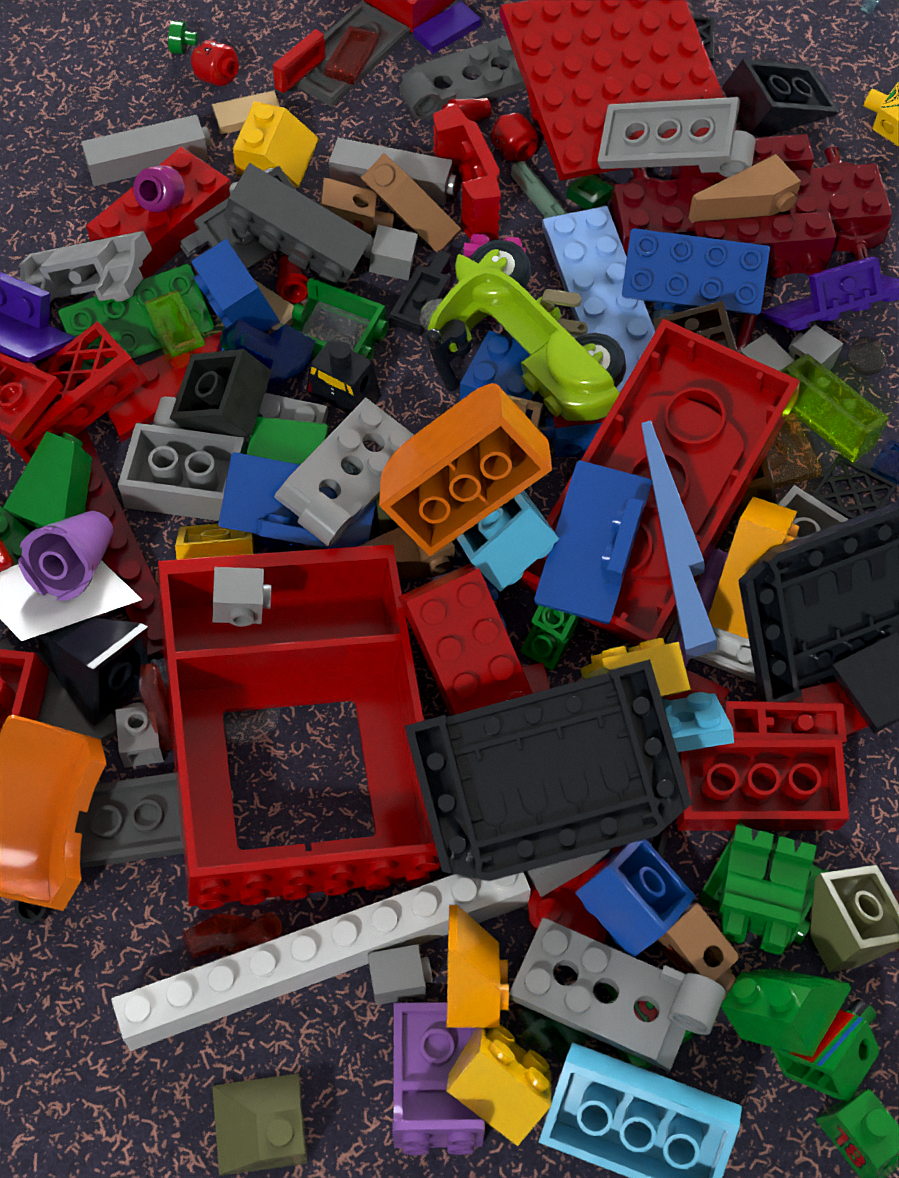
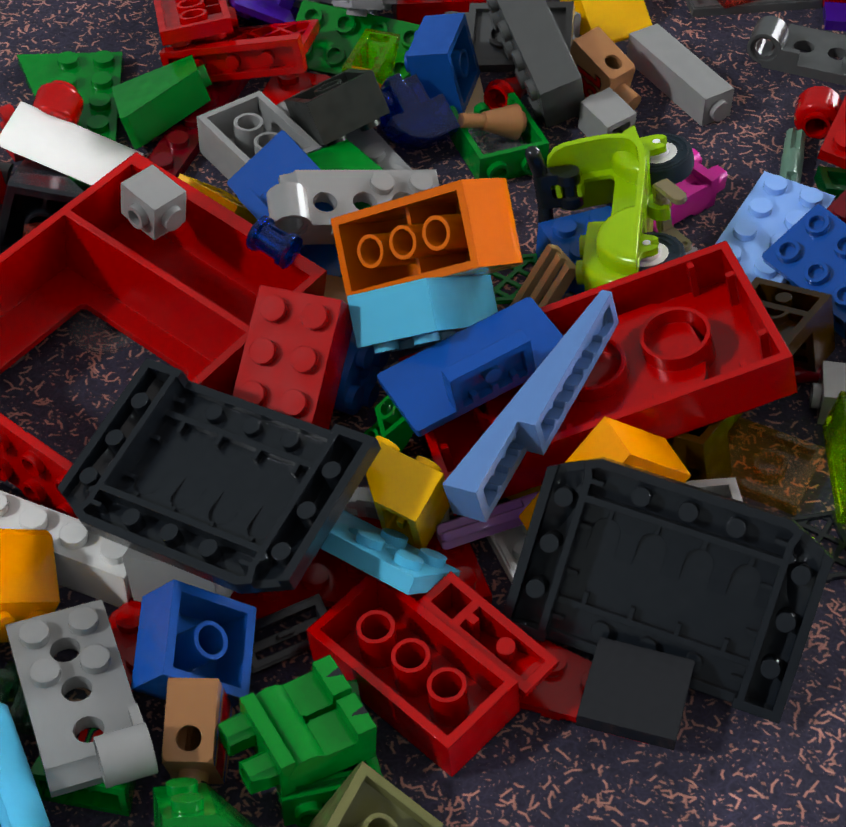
camera: 45 degrees right, 15 degrees down
(65, 554) = (105, 125): medium lavender cone -> none
(332, 308) = (502, 121): none -> medium nougat cone
(342, 377) = (453, 151): black torso -> none
(349, 554) = (274, 241): none -> clear blue bush
(410, 203) = (658, 86): medium nougat slope -> none
(463, 143) = (730, 121): red plate -> none
(472, 108) = (796, 74): red cone -> none

